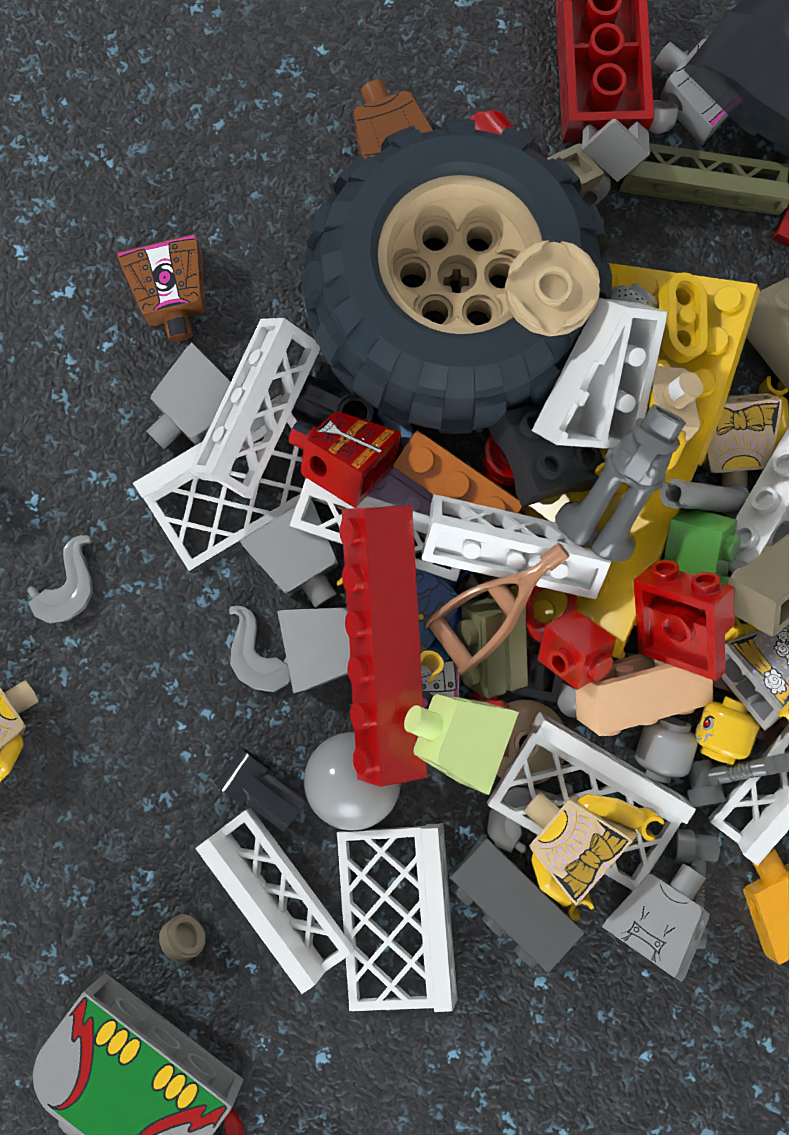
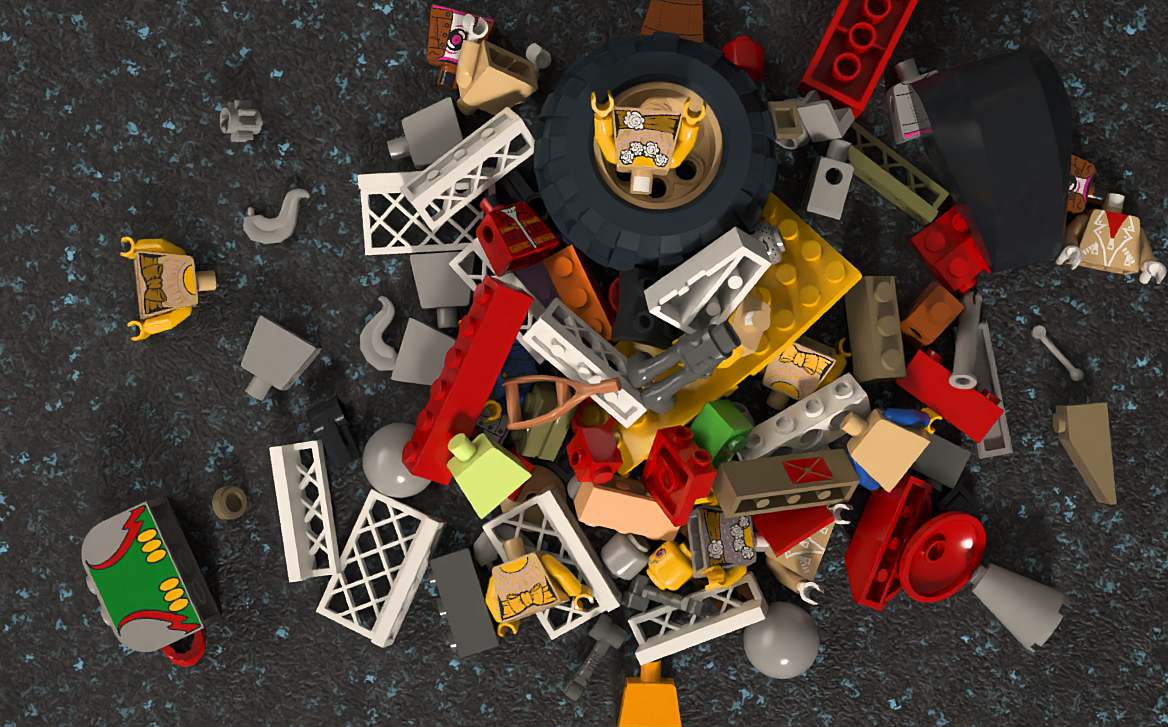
camera: 30 degrees right, 5 degrees up
(147, 741) = (275, 357): none -> light grey torso
(225, 293) = (493, 76): none -> tan torso
(446, 247) = (645, 139): none -> torso
(552, 288) = (704, 204): tan tile -> none
(659, 214) = (825, 196): none -> light grey torso
(663, 920) = (556, 667): light grey torso -> none
(664, 116) = (877, 108): light grey hinge -> none
(684, 320) = (795, 270): yellow plate -> none
(704, 496) = (741, 398): light grey pin -> none

